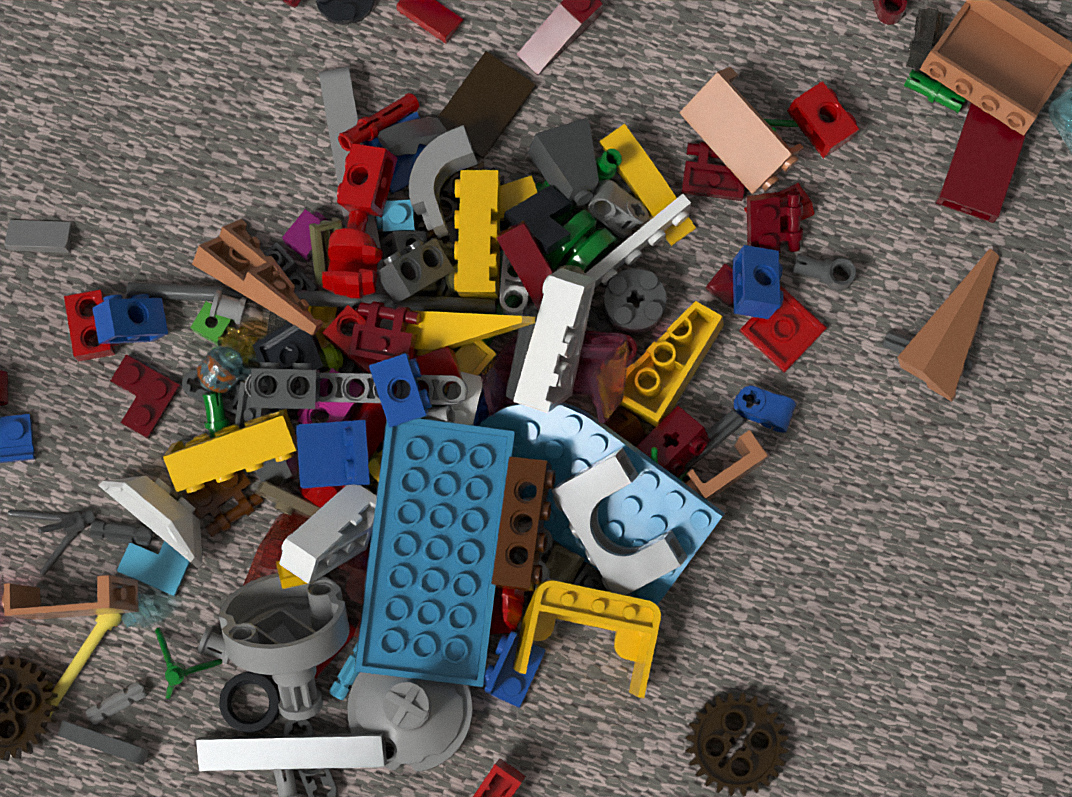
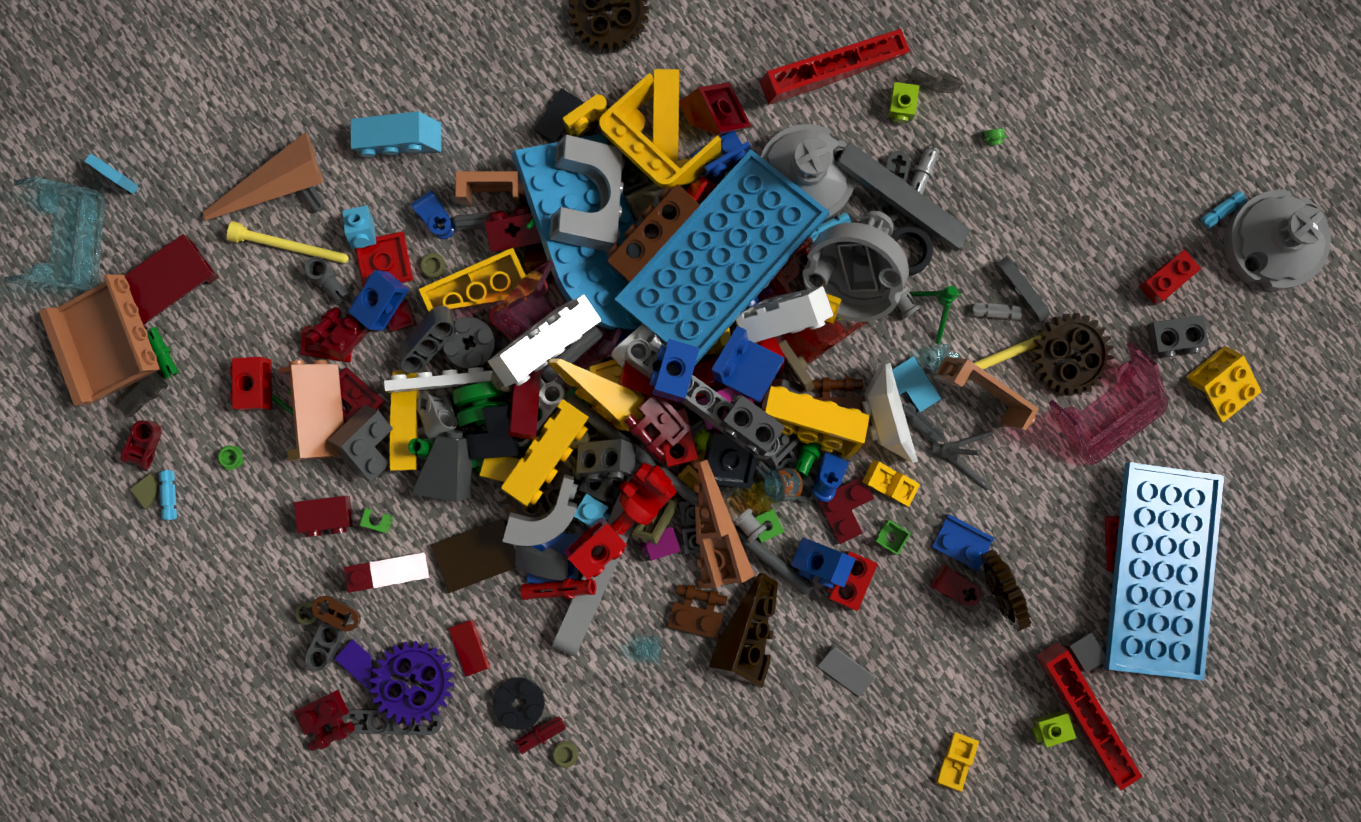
camera: 145 degrees left, 5 degrees up
(66, 391) = (901, 534): none -> bright green piece
(113, 450) = (891, 483): none -> yellow slope
(160, 192) = (743, 642): none -> dark brown wedge
(180, 414) = (829, 477): none -> blue piece
(223, 187) = (695, 619): none -> reddish brown plate
(253, 127) = (647, 648): none -> clear light blue tile
(549, 713) = (715, 109): none -> dark red slope
(594, 66) = (383, 527): none -> bright green piece
(597, 670) = (666, 112): none -> yellow slope
(660, 42) = (323, 514): none -> dark red brick
(675, 130) = (357, 442): none -> dark grey brick
(680, 274) = (426, 339): none -> dark grey beam
(680, 600) = (578, 120): none -> yellow plate
(709, 608) = (551, 124): none -> black tile
(730, 358) = (433, 265): none -> olive tile
(795, 31) = (224, 460): none -> bright green plate
(829, 342) = (359, 227): none -> medium azure brick
(861, 460) = (395, 134): none -> medium azure wedge
(948, 258) = (237, 232): none -> light yellow piece

